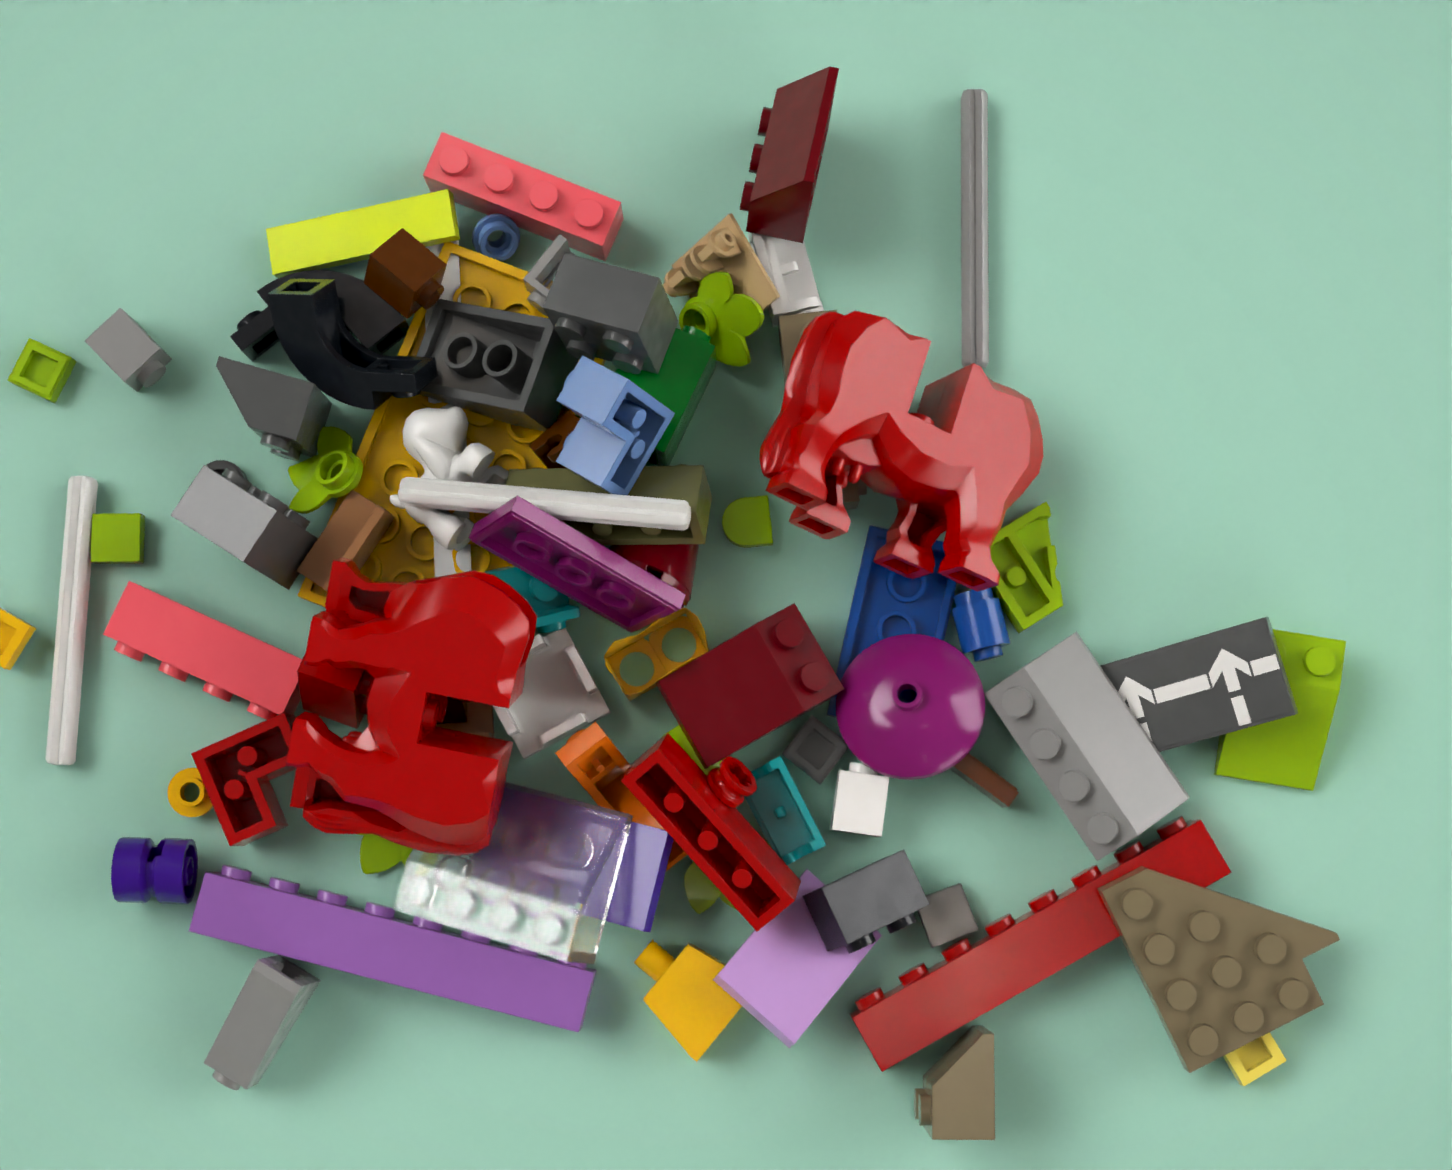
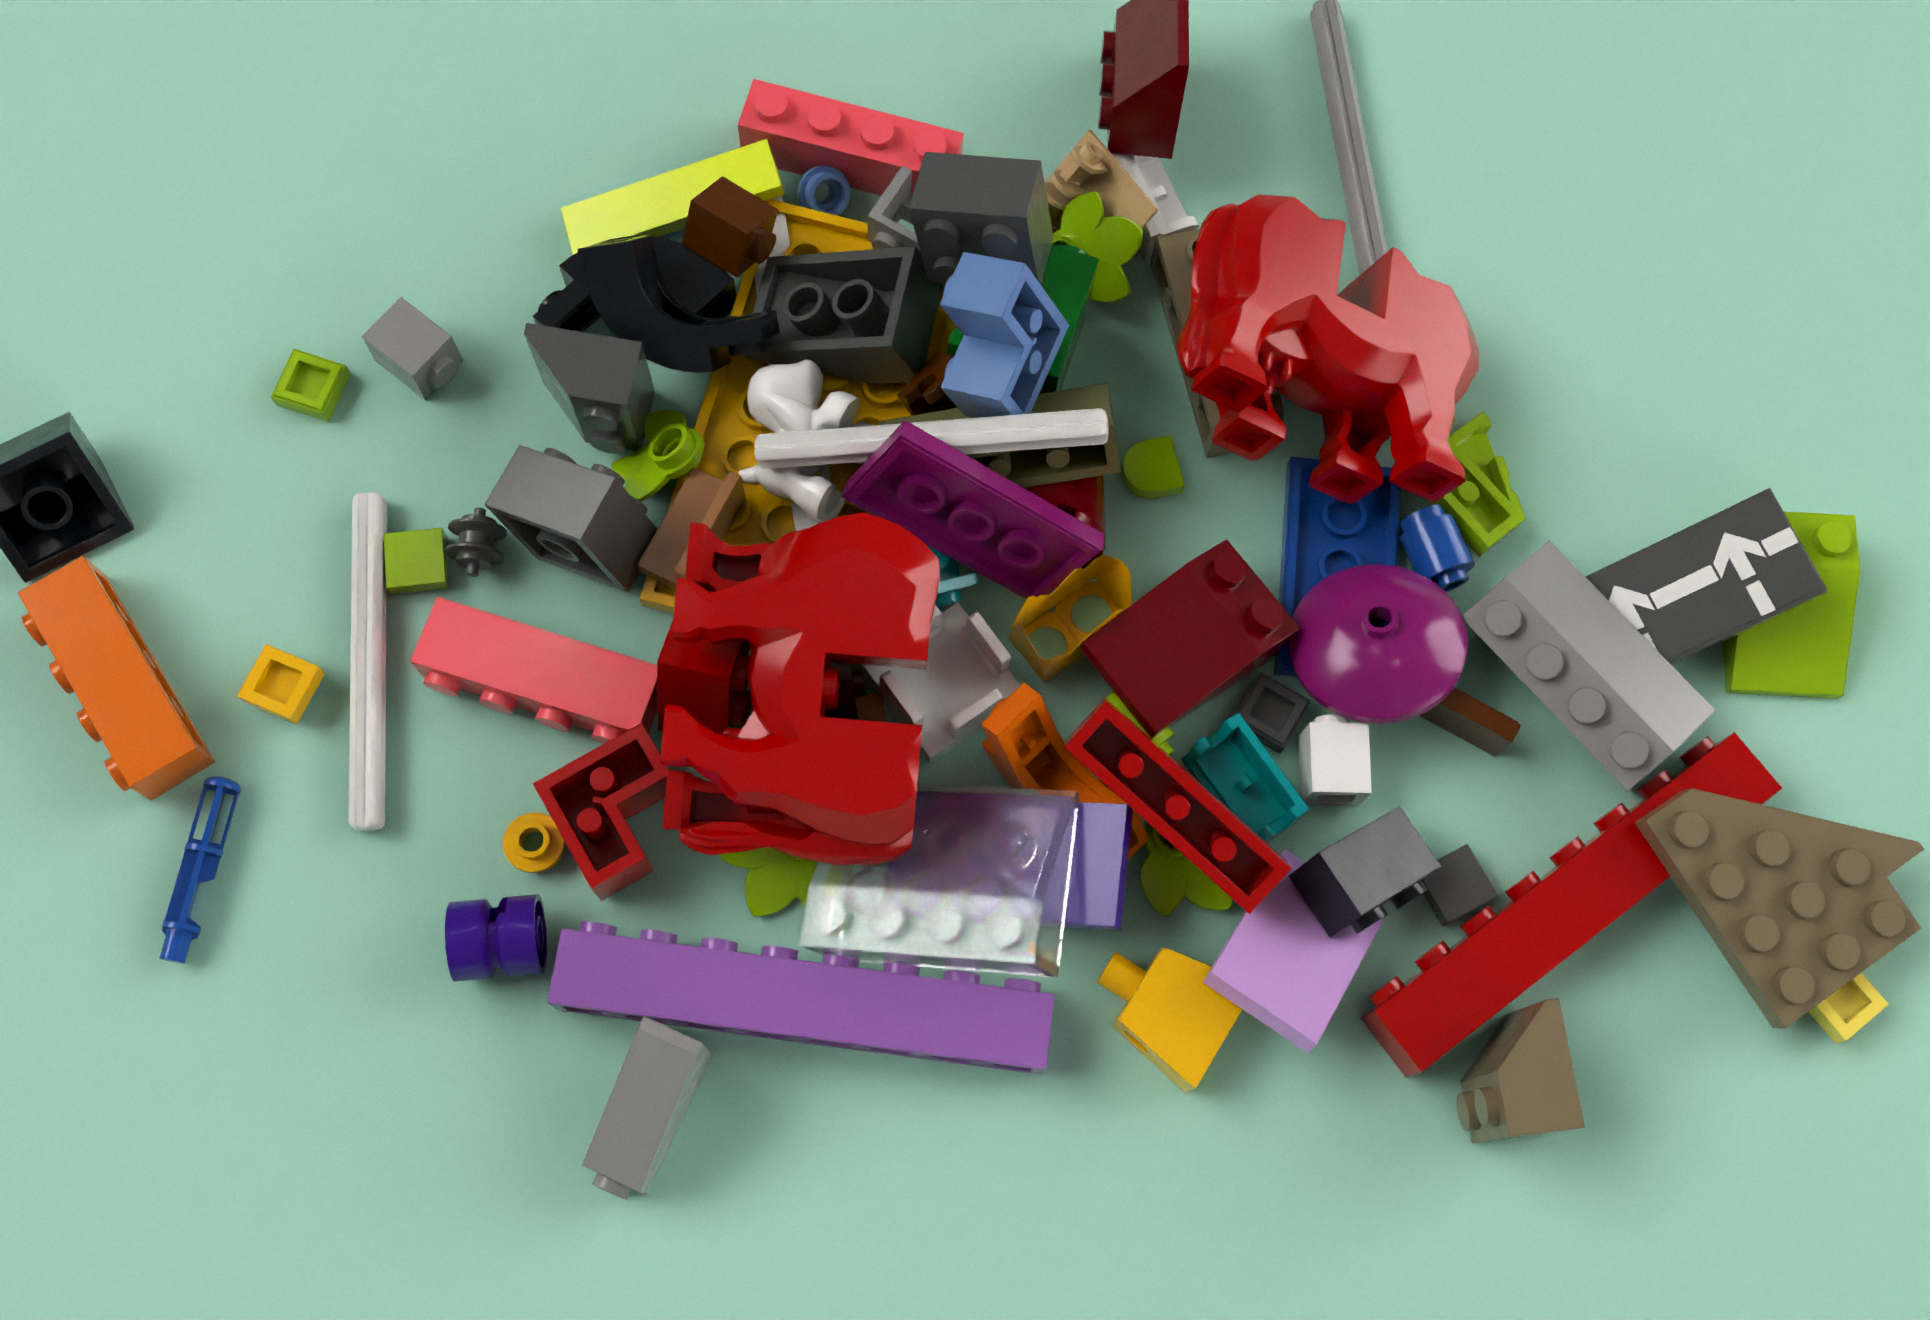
camera: 15 degrees left, 10 degrees down
(165, 532) = (476, 542): none -> dark grey wheel
(731, 782) = (1188, 745): red bush -> none

